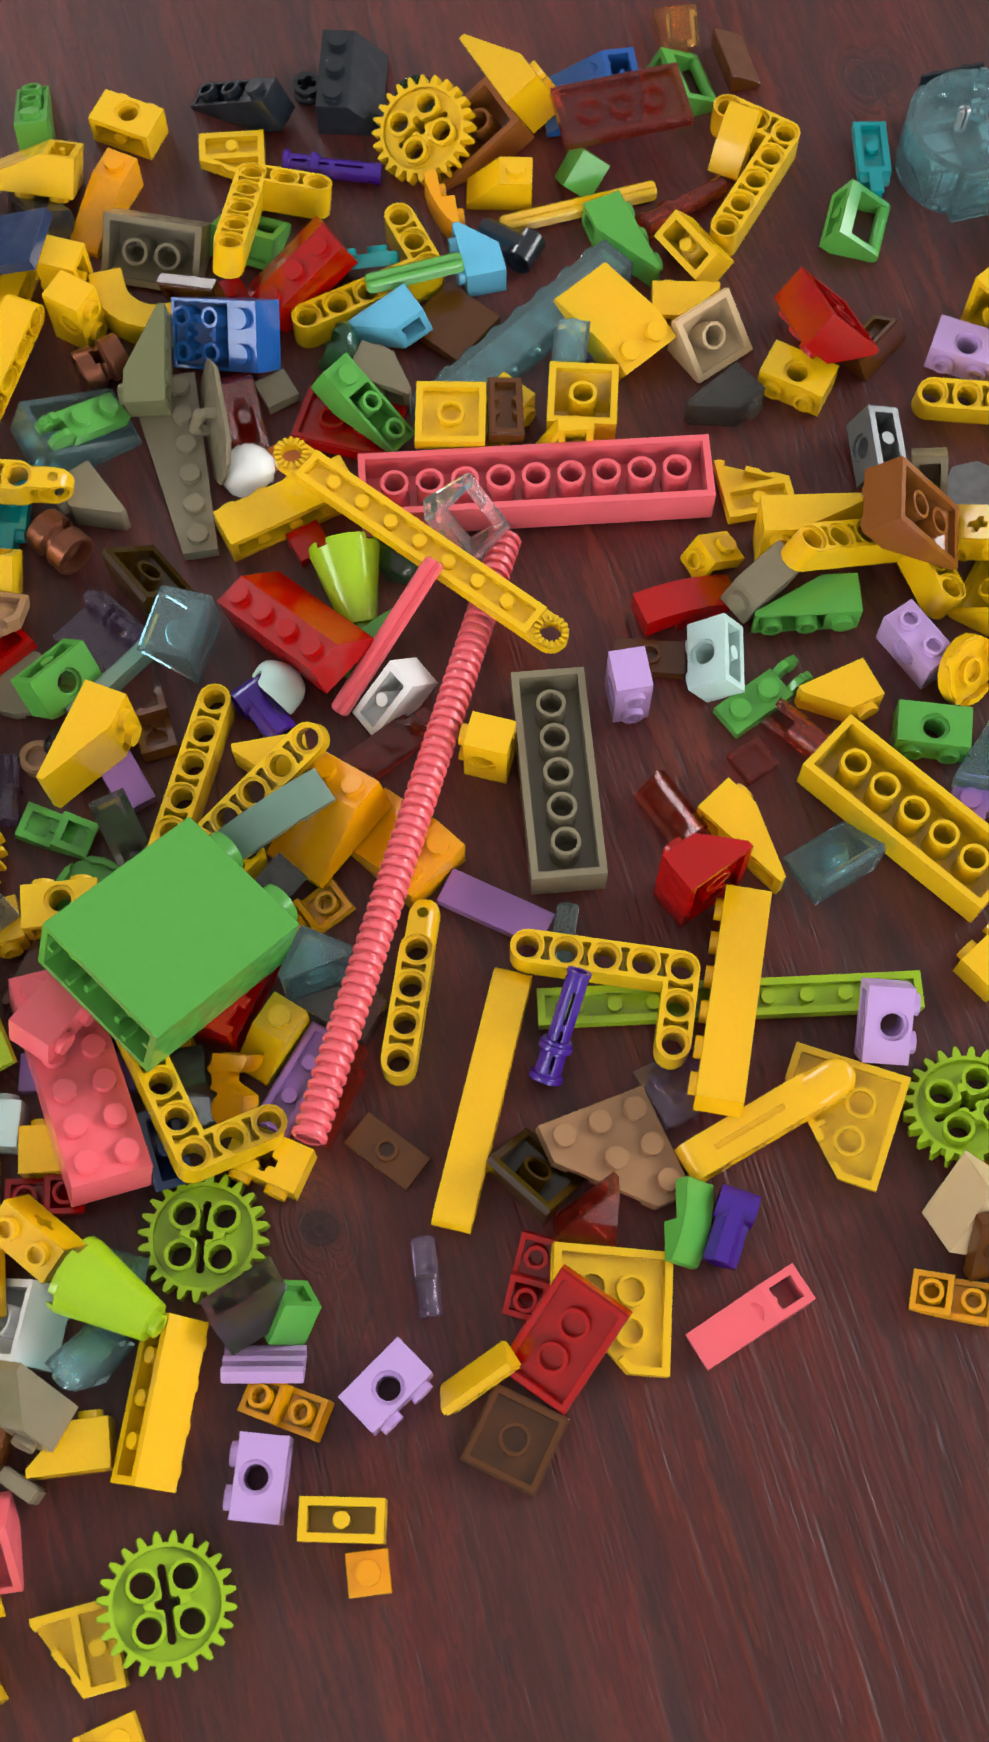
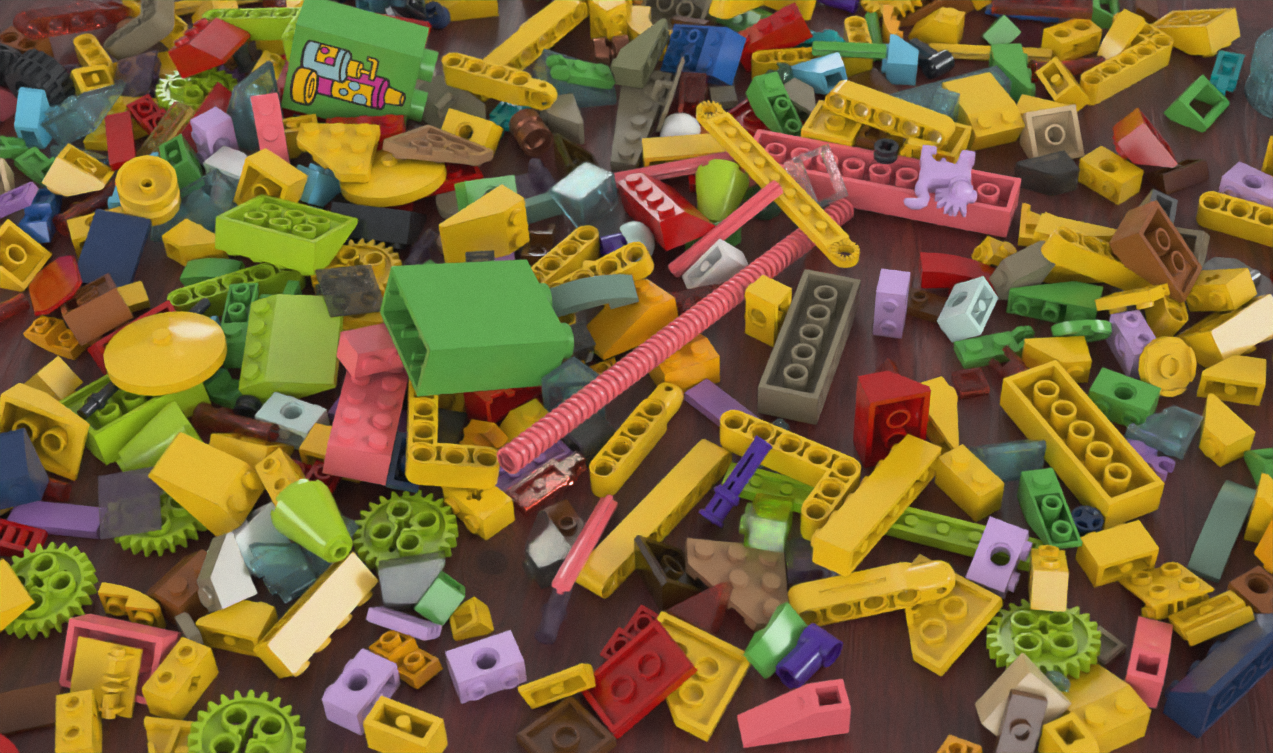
camera: 25 degrees right, 25 degrees down
(43, 1554) = (180, 680): none -> yellow brick
(265, 549) = (674, 168): none -> coral axle
(336, 1323) = (471, 620): none -> yellow slope
(382, 1201) = (544, 551): none -> clear smoke slope
(411, 196) = (874, 29): none -> bright green axle
(427, 1182) = (584, 545): none -> coral axle
(517, 385) = (889, 113): none -> yellow beam
(533, 435) = (885, 151): none -> black bush
(618, 1065) = (767, 522): none -> clear neon green brick
(626, 471) = (945, 179): none -> lavender animal
(671, 157) = (1072, 39): none -> yellow brick
(811, 918) = (969, 483): none -> yellow brick
(815, 92) = (1201, 30): none -> yellow slope
(854, 648) = (1091, 329): none -> bright green tile
(900, 585) = (1140, 297): none -> yellow plate
(913, 932) = (1047, 509): none -> bright green slope
(950, 1033) = (1048, 579): none -> yellow brick
(957, 921) = (1087, 519): none -> dark blue wheel

